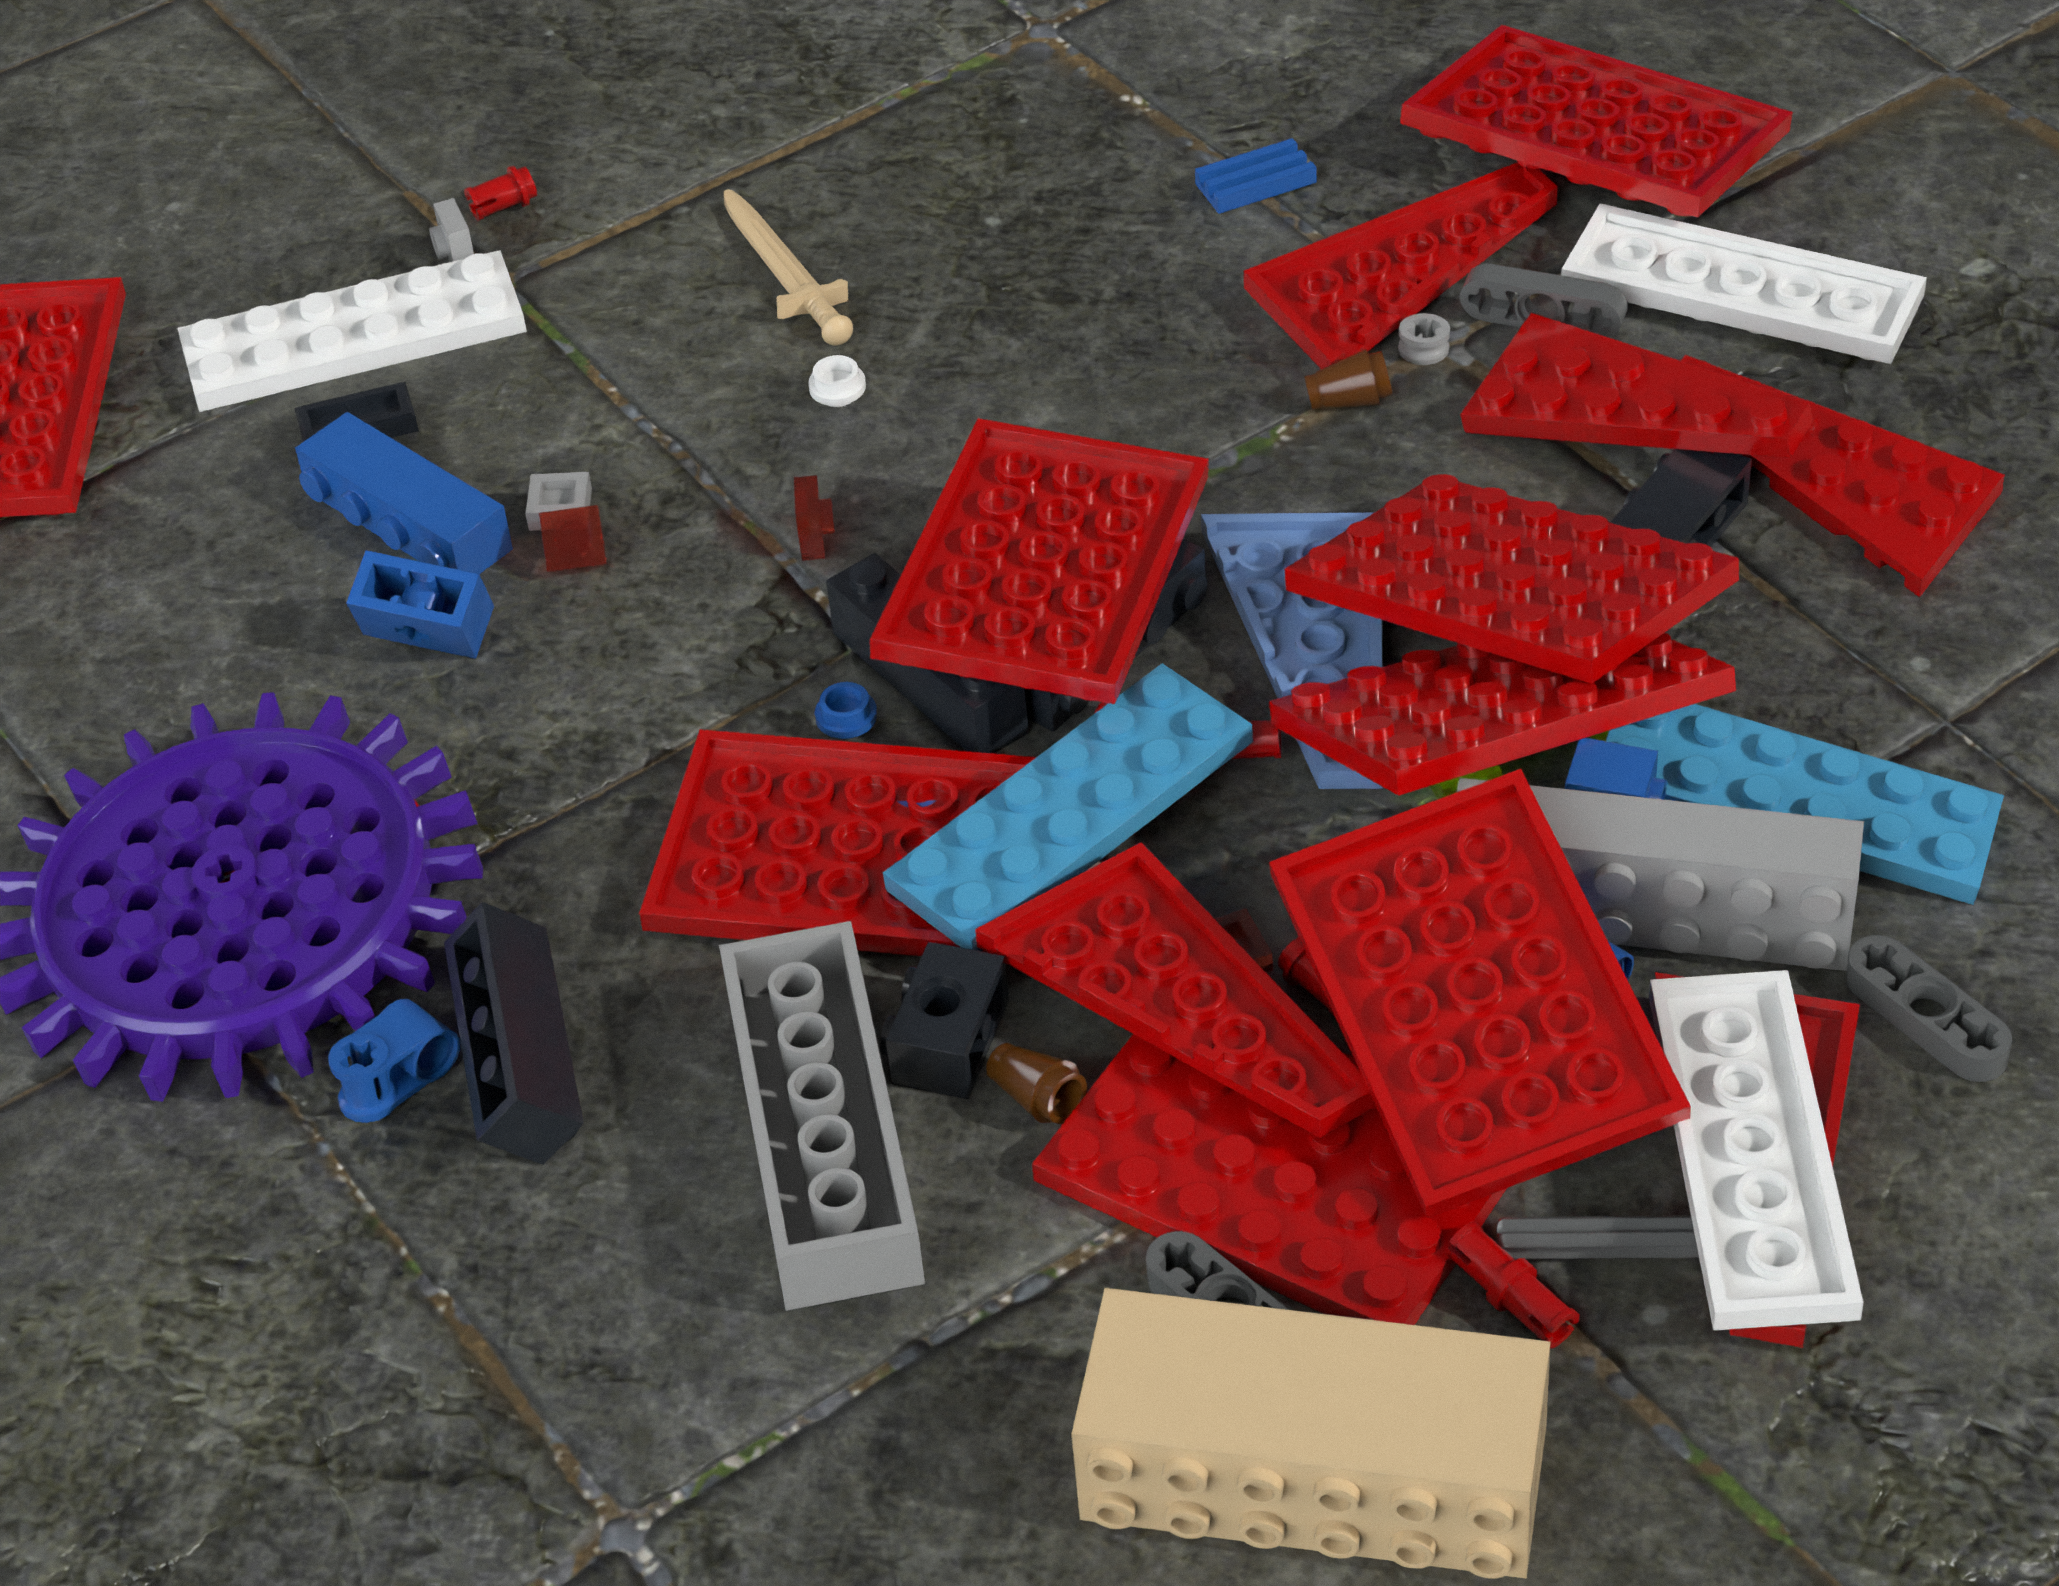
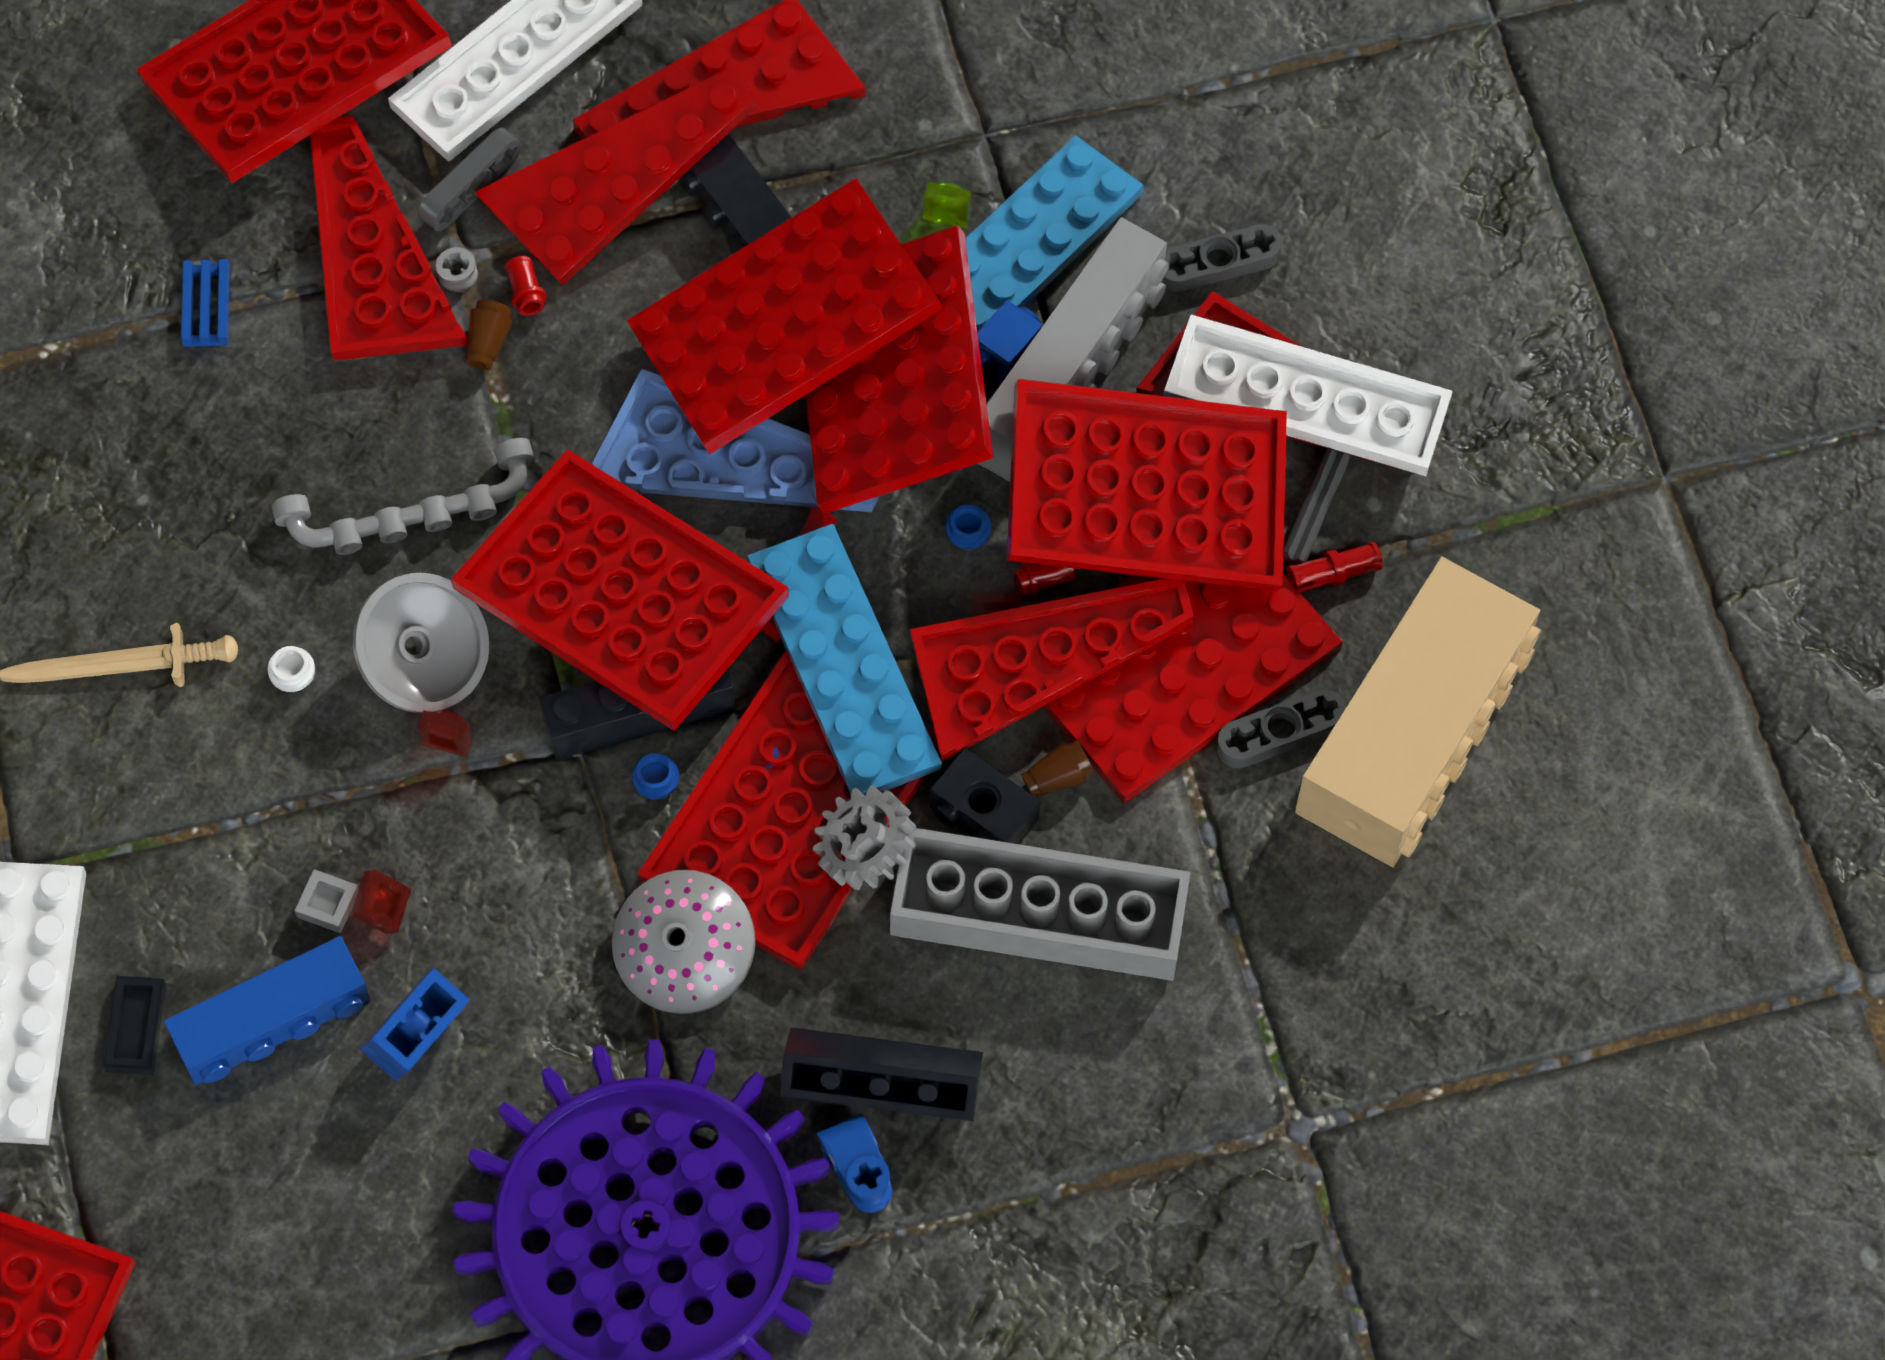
camera: 75 degrees left, 20 degrees up
(628, 802) = (708, 962): none -> light grey dish
(819, 889) = (864, 838): none -> light grey gear
(879, 424) = (447, 636): none -> light grey dish
(1061, 391) = (390, 522): none -> light grey bar
(1425, 396) = (527, 295): none -> red pin
(1805, 700) = (947, 204): none -> clear neon green plate

